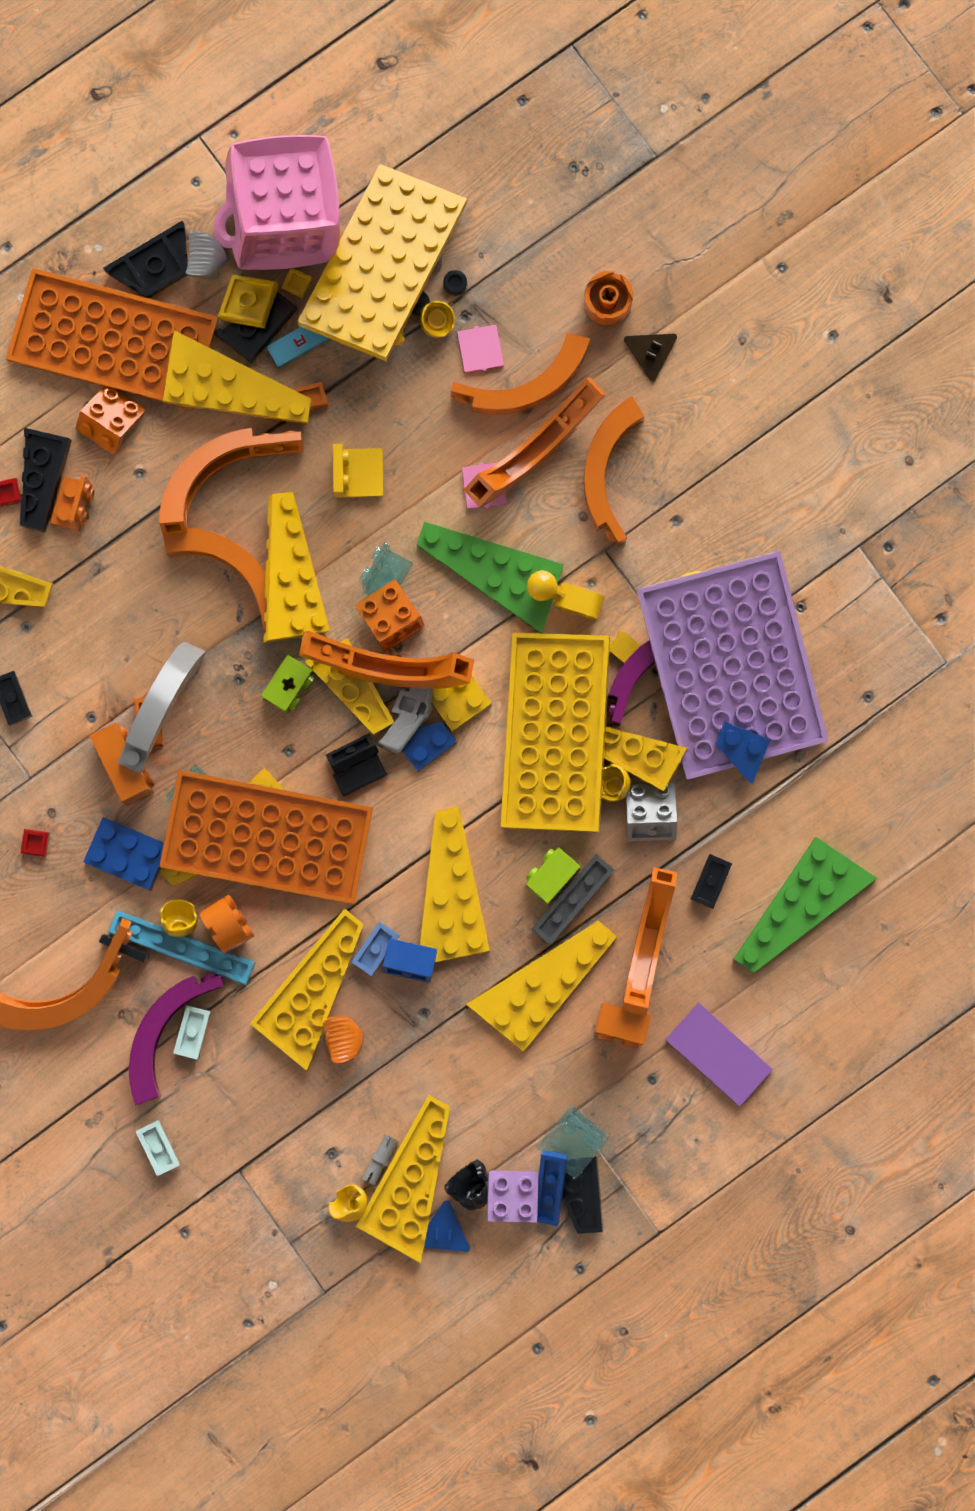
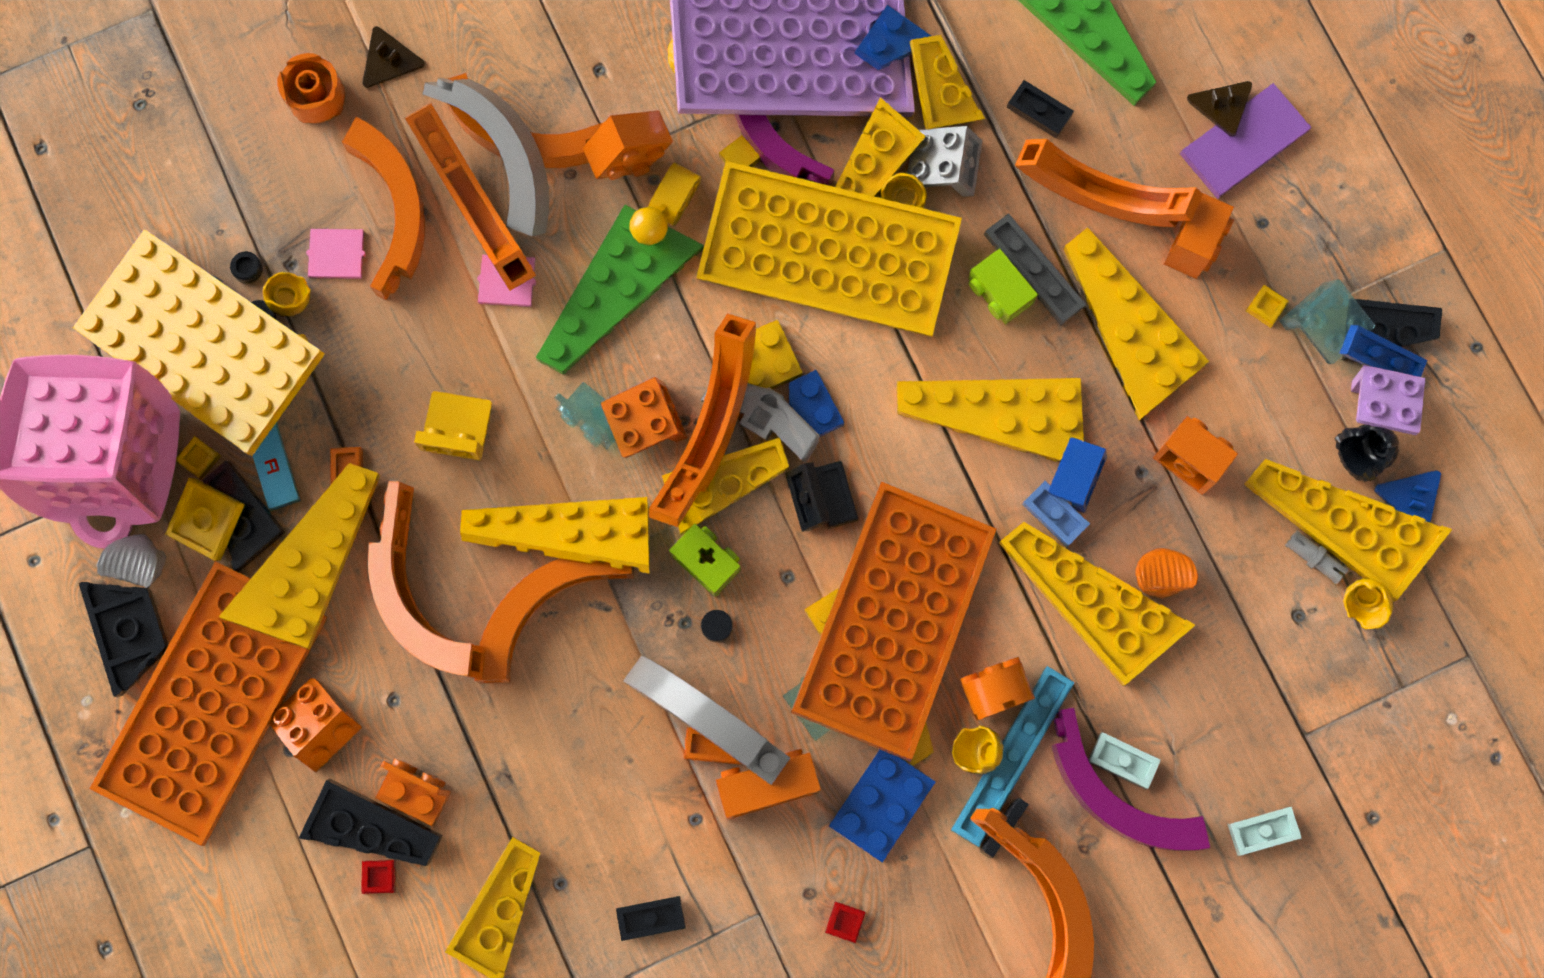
camera: 80 degrees left, 5 degrees down
(239, 703) = (716, 625): none -> black tile
(439, 1048) = (1196, 455): none -> orange brick
(580, 1092) = (1267, 306): none -> yellow tile
(590, 464) = (516, 145): none -> light grey arch
(605, 556) = (627, 145): none -> orange brick
(711, 797) = (941, 89): none -> yellow wing
(745, 1031) = (1223, 105): none -> dark brown piece

